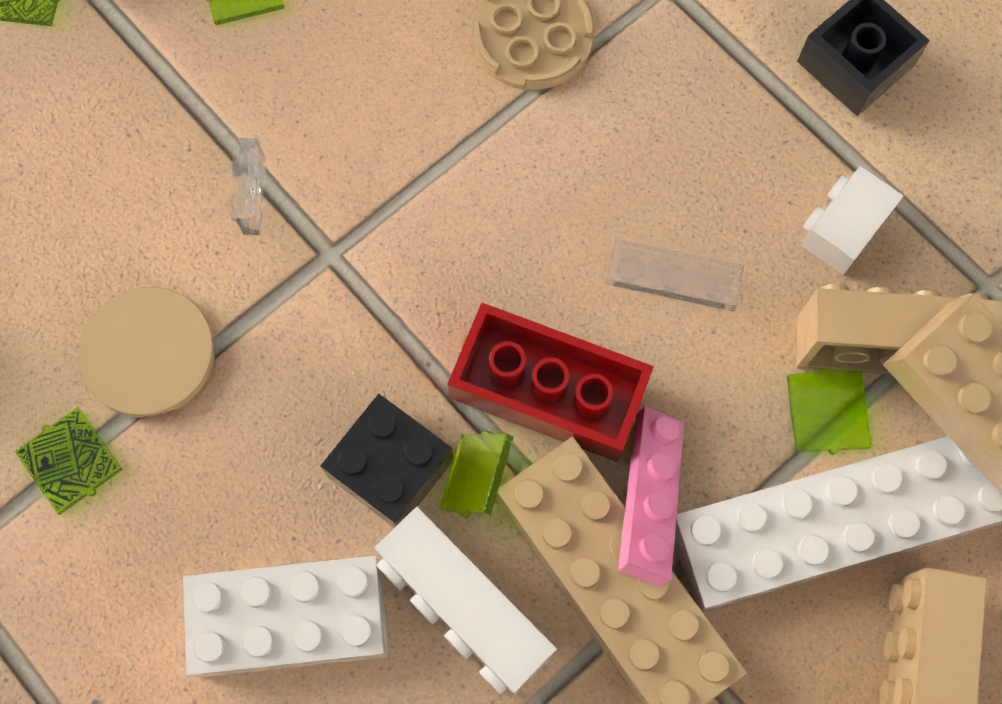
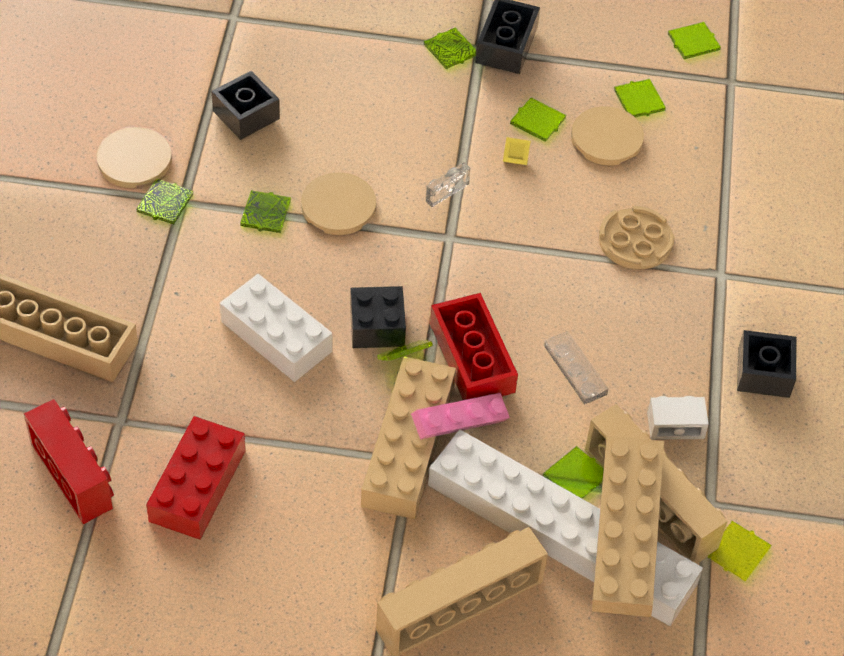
camera: 45 degrees right, 20 degrees down
(274, 56) = (516, 151): none -> light yellow plate
(465, 600) = (342, 381): white brick -> none

